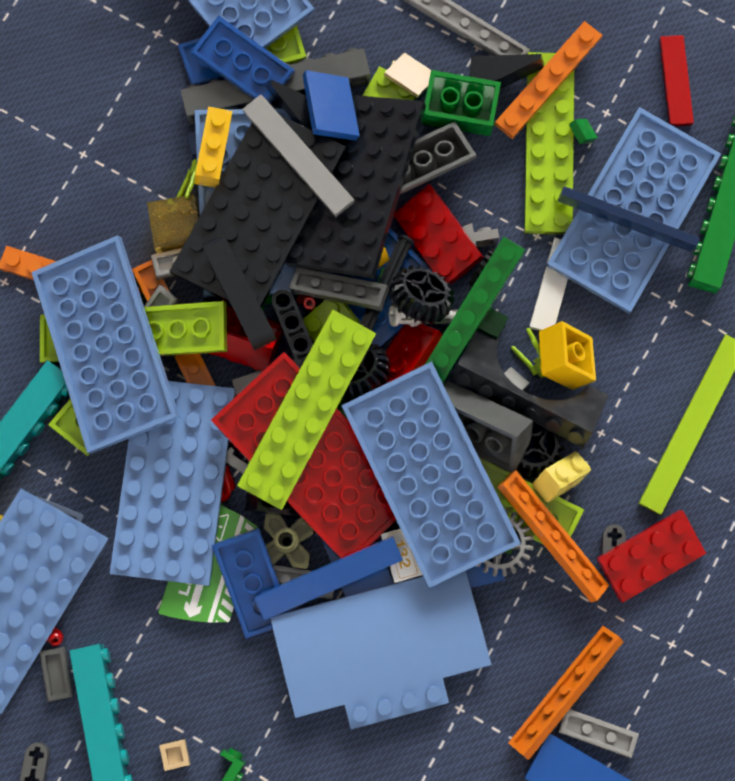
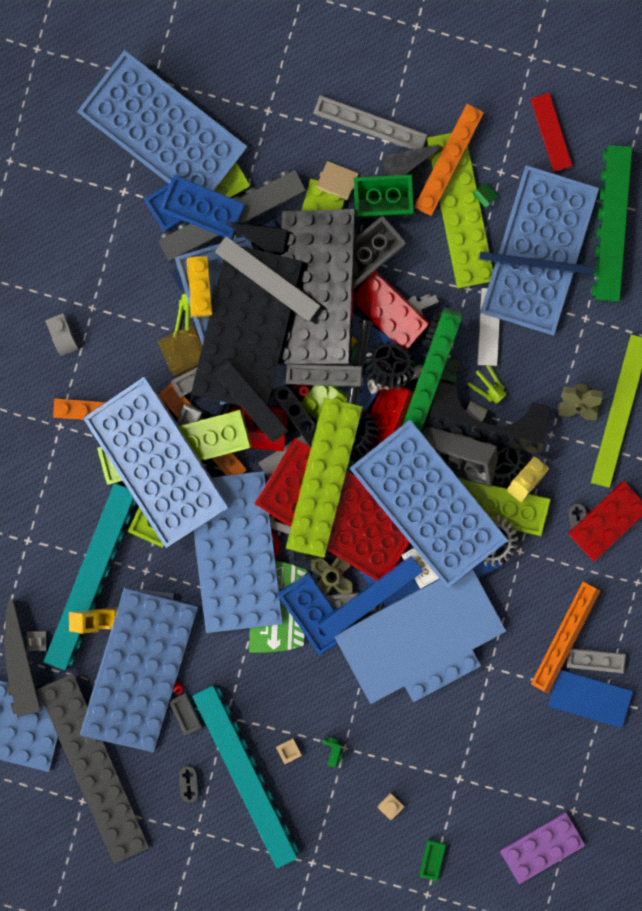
camera: 10 degrees left, 10 degrees up
(36, 174) = (62, 335): none -> light grey brick
(330, 105) = (282, 229): blue tile -> none
(553, 536) = (531, 526): orange plate -> none
(567, 355) = (511, 385): yellow brick -> none
(647, 397) = (580, 400): none -> olive plant

